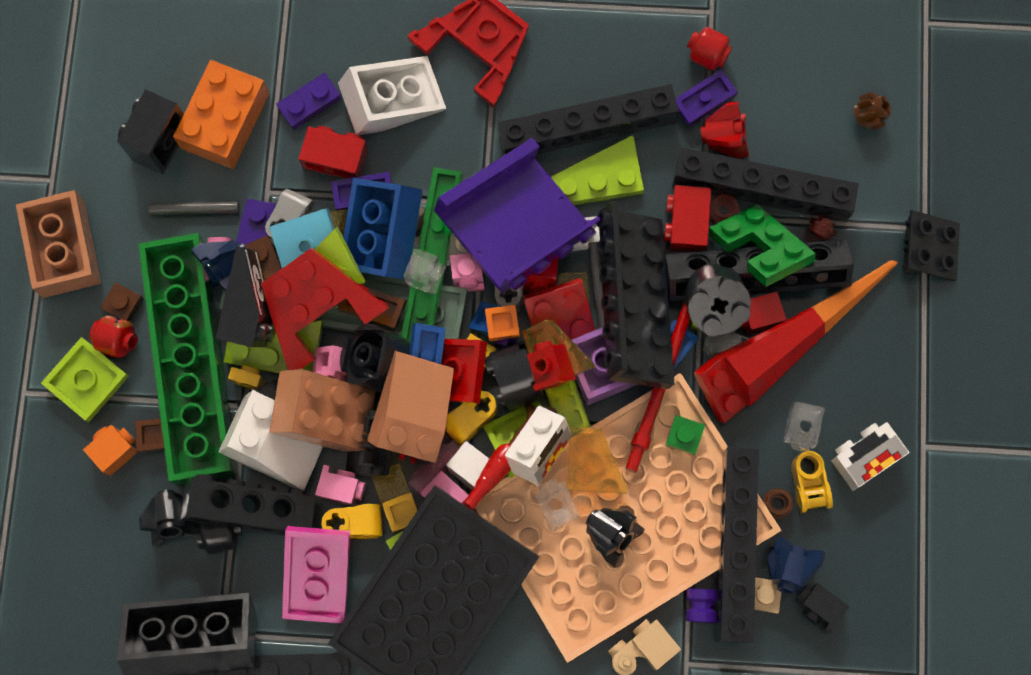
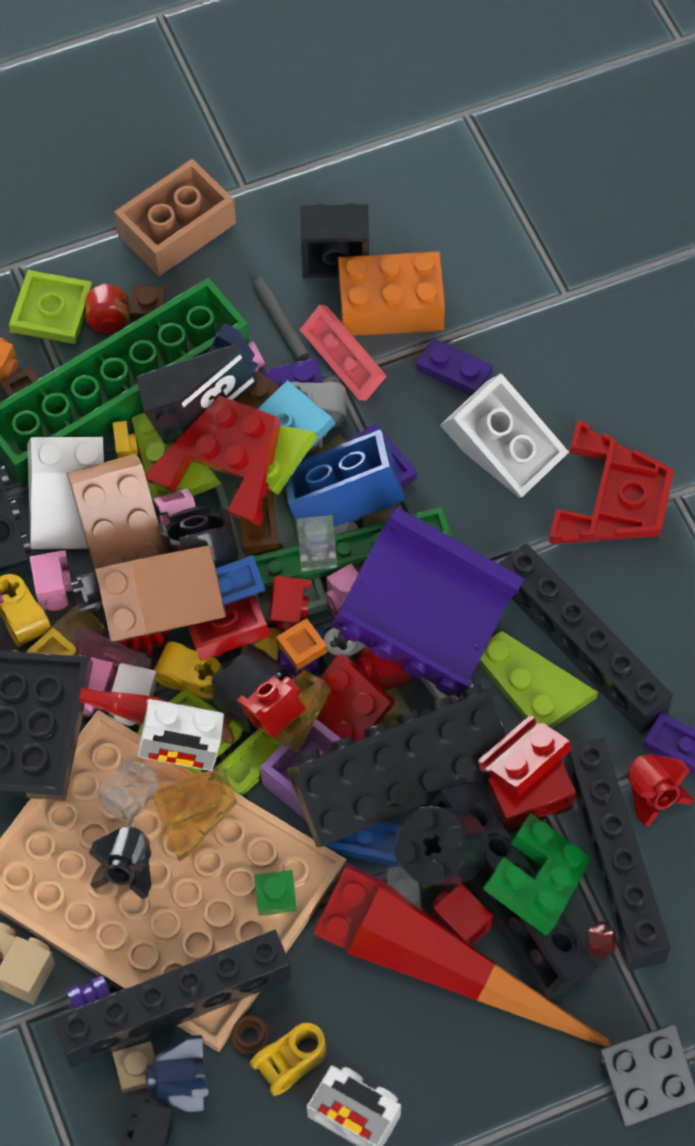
camera: 60 degrees right, 15 degrees down
(253, 175) = (343, 352): none -> coral plate
(333, 152) = (408, 413): red brick -> none
(458, 316) = (287, 602): none -> red brick
(641, 439) = (246, 848): red bar -> none
(668, 208) = (524, 755): none -> plate
(723, 200) = (569, 816): clear red plate -> none
(807, 413) = (363, 1031): clear brick -> none

